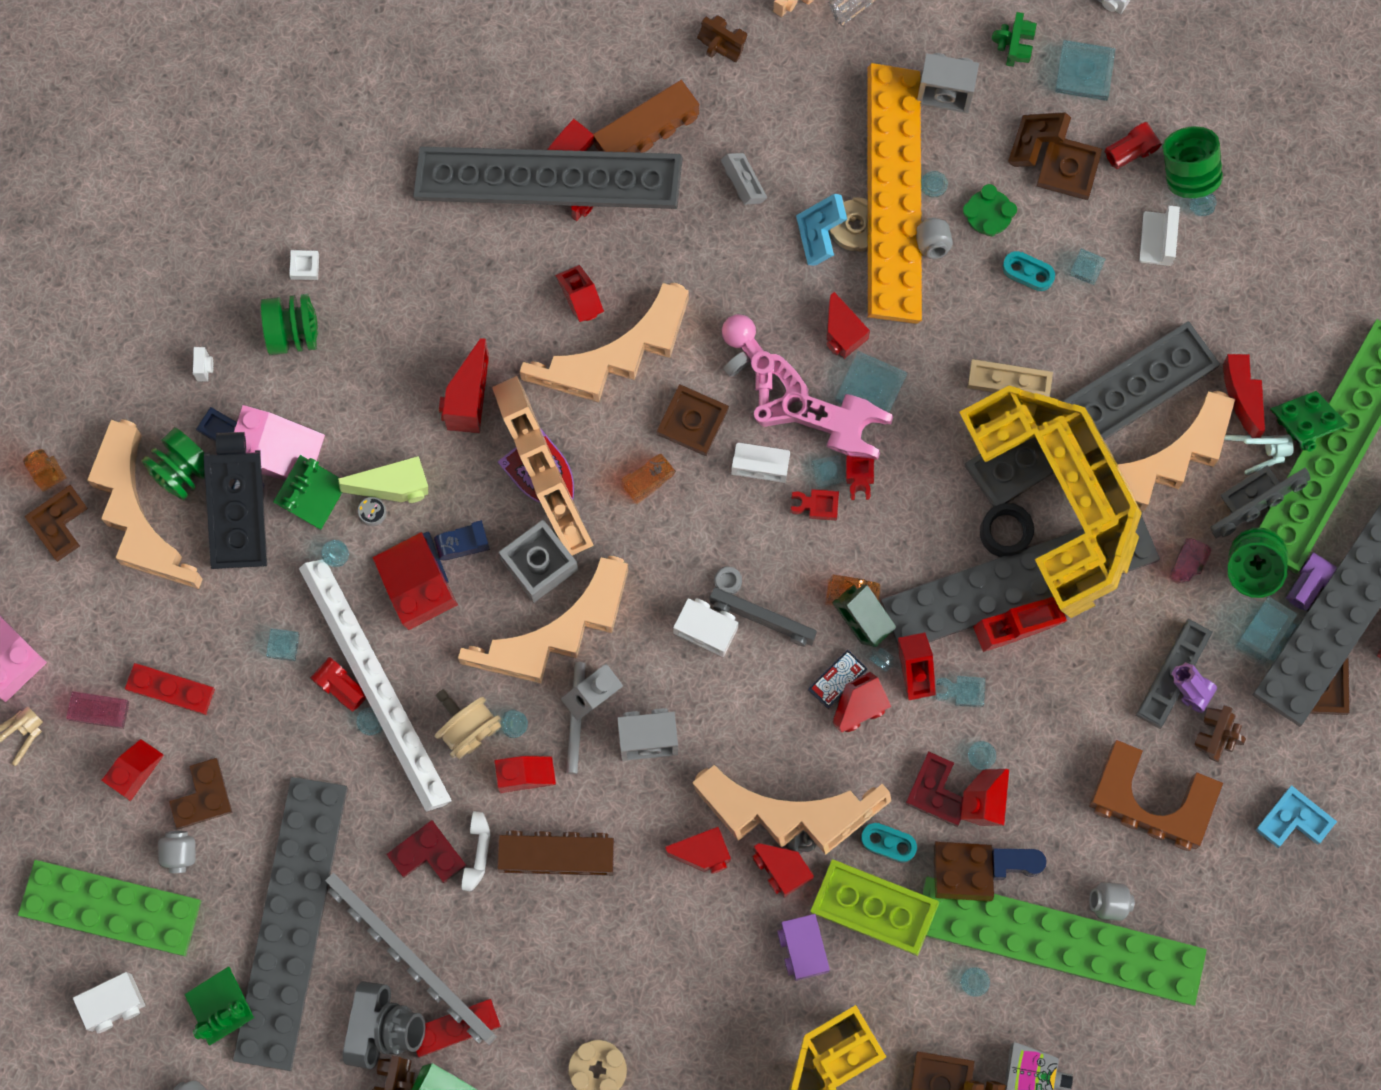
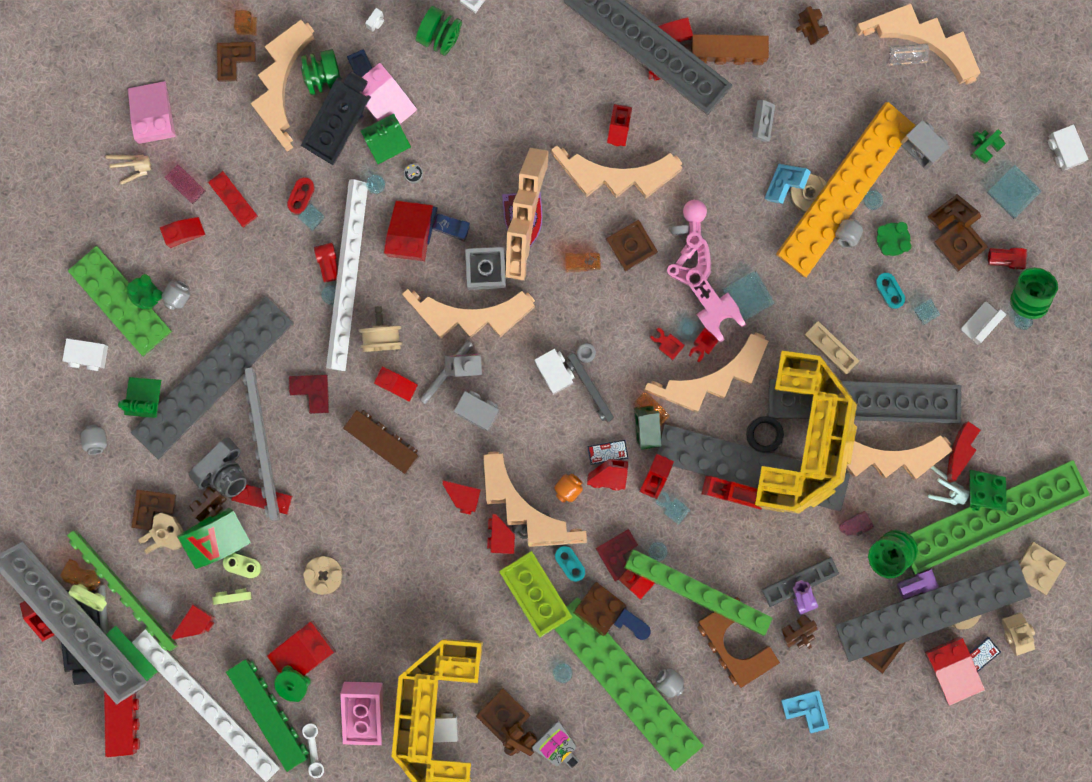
camera: 35 degrees right, 10 degrees up
(134, 875) = (143, 292): none -> green piece
(209, 800) = (211, 278): reddish brown plate -> none
(253, 628) = (301, 196): none -> red plate
(392, 482) = (436, 165): yellowish green slope -> none
(465, 393) = (511, 142): red slope -> none
(472, 876) = (327, 421): white bar -> none
(514, 723) = (409, 351): clear light blue plate -> none
(760, 462) = (653, 296): white panel -> none
(804, 947) = (481, 588): medium lavender brick -> none
(822, 753) = (568, 488): none -> orange head
(844, 328) = (757, 251): red slope -> none
(882, 659) = (640, 458): clear light blue plate -> none
(887, 541) = (692, 392): none -> light nougat arch
(1067, 765) = (698, 592): none -> bright green plate
(1254, 495) = (922, 512): dark grey bracket -> none
(1266, 631) = (870, 594): clear light blue brick -> none

